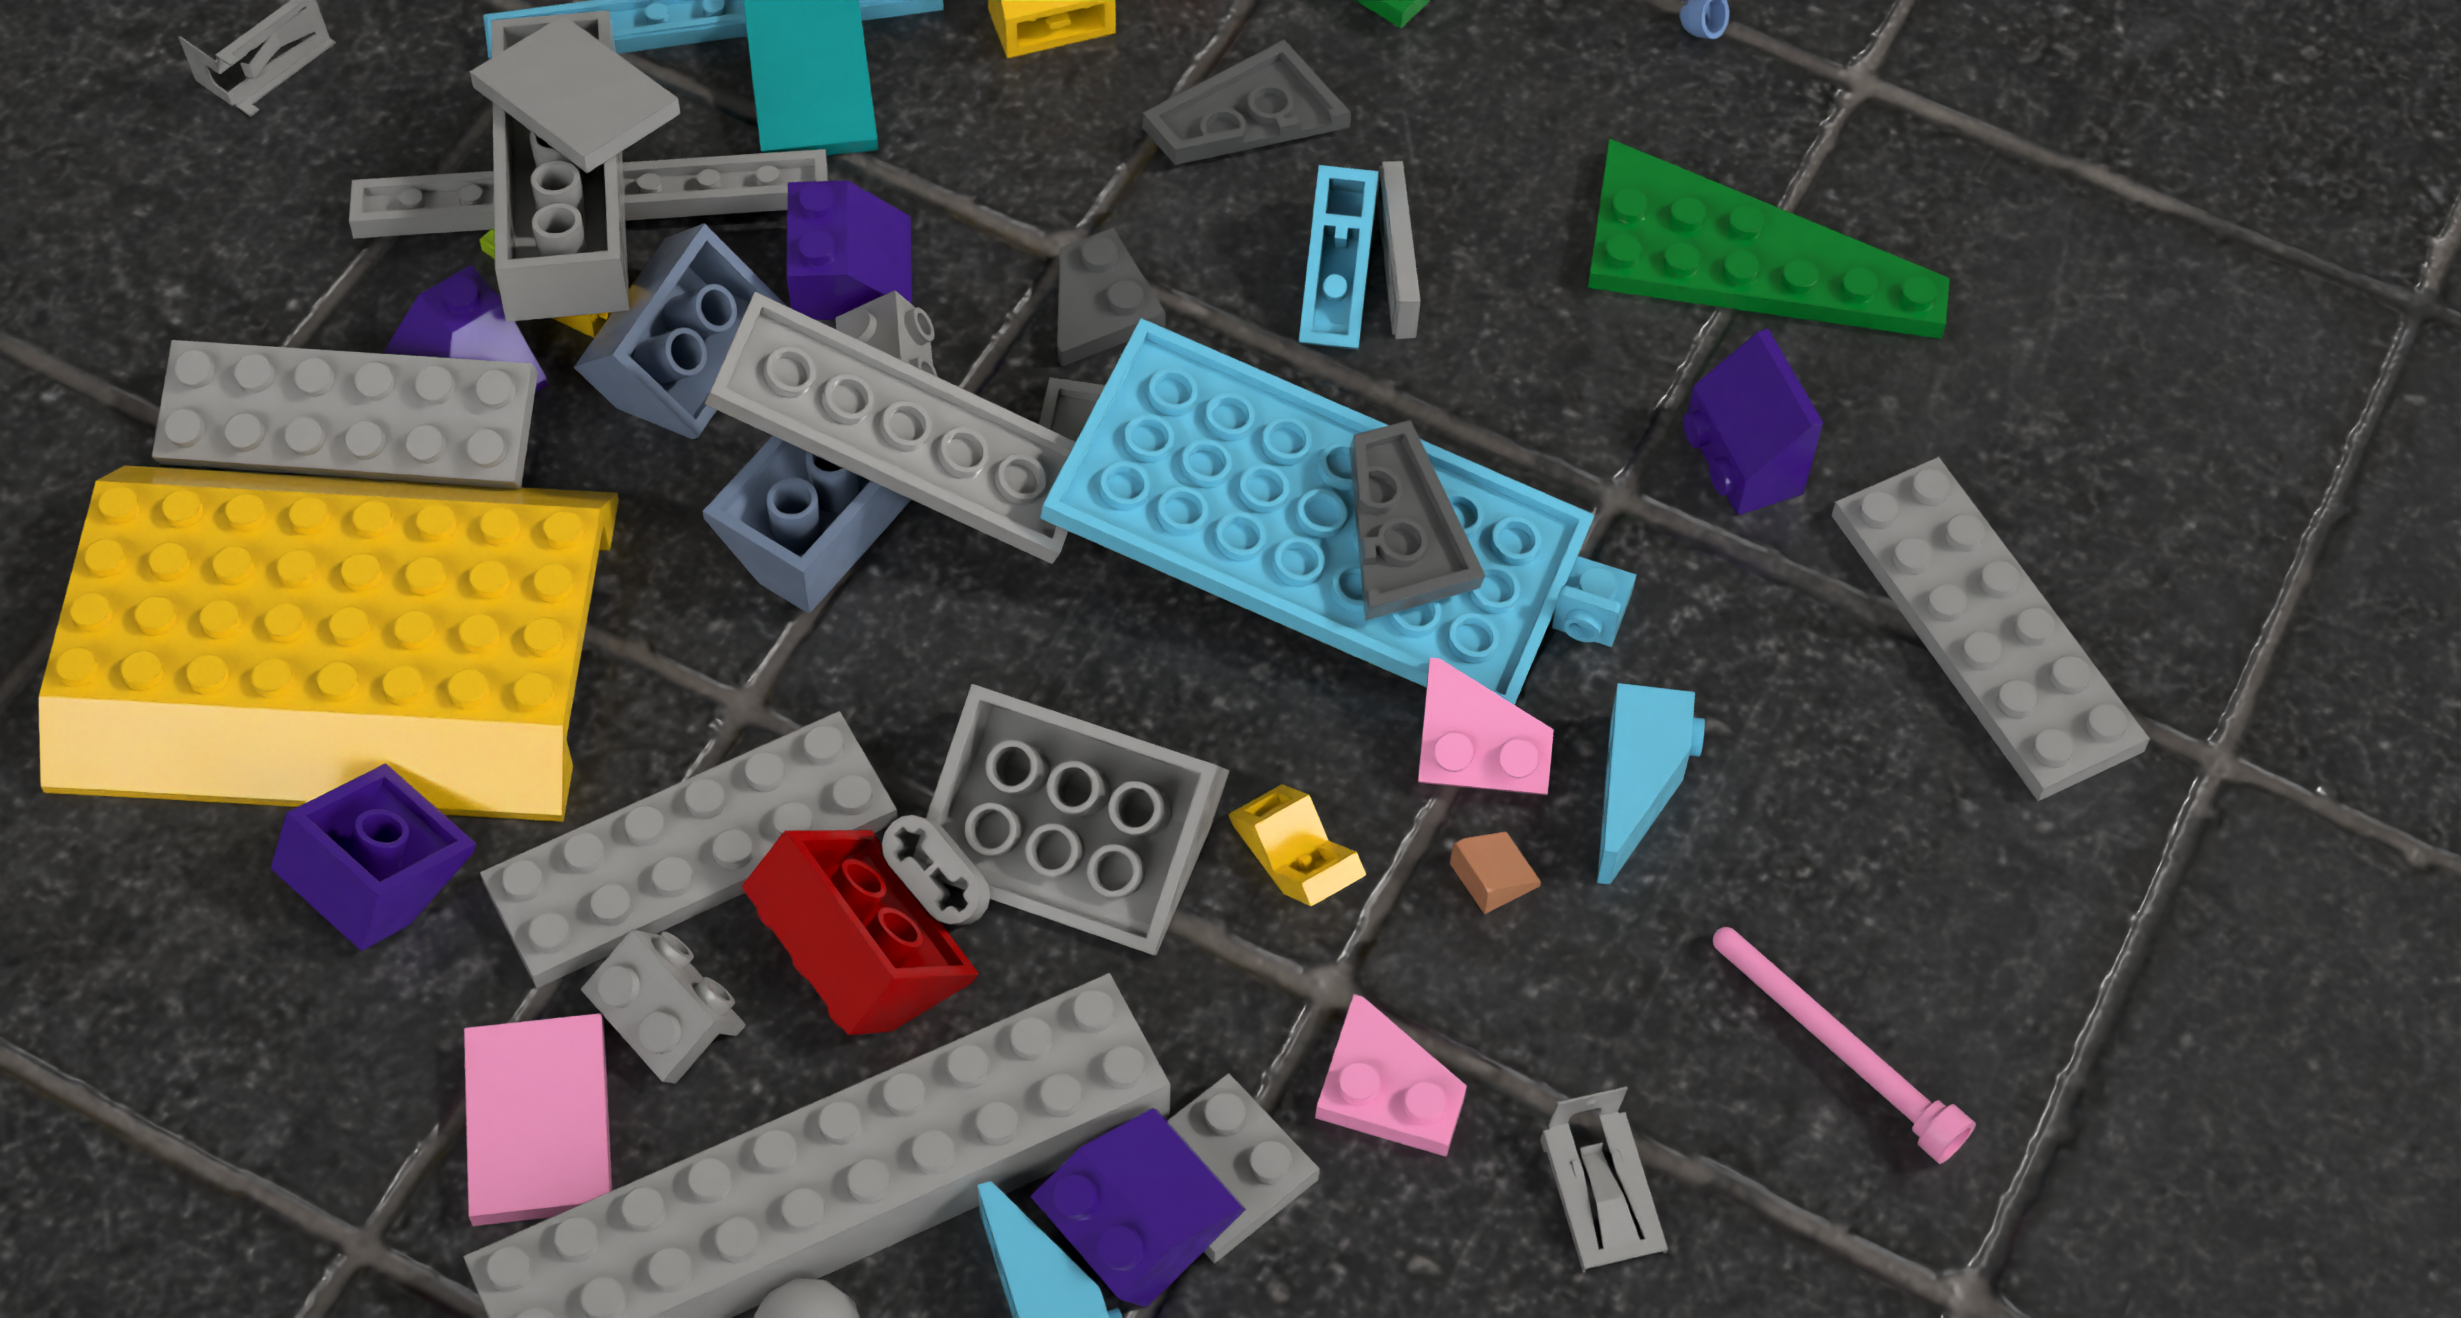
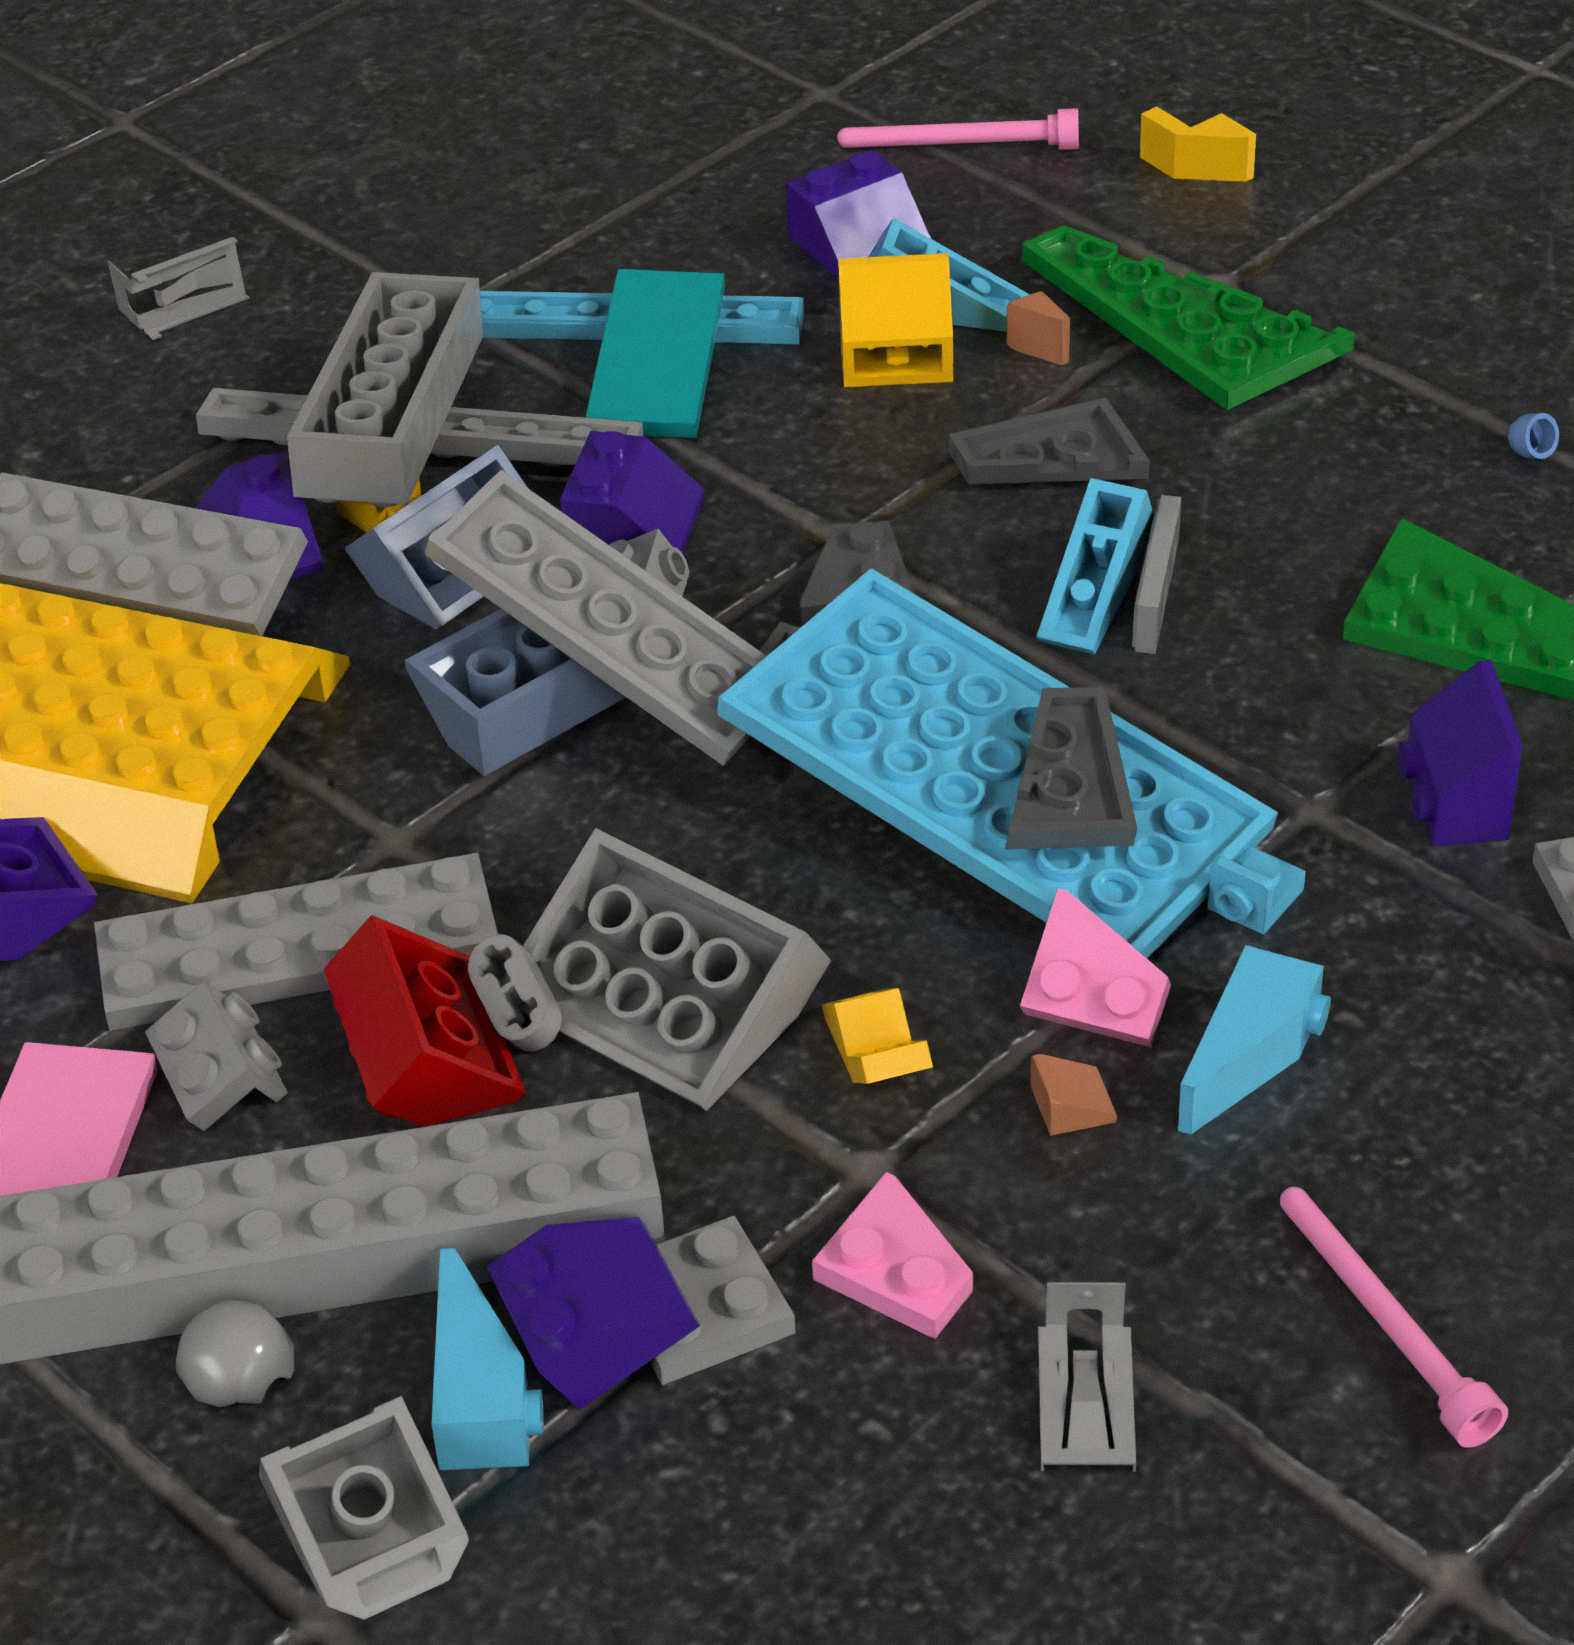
camera: 20 degrees right, 15 degrees down
(575, 93) = (418, 325): light grey tile -> none

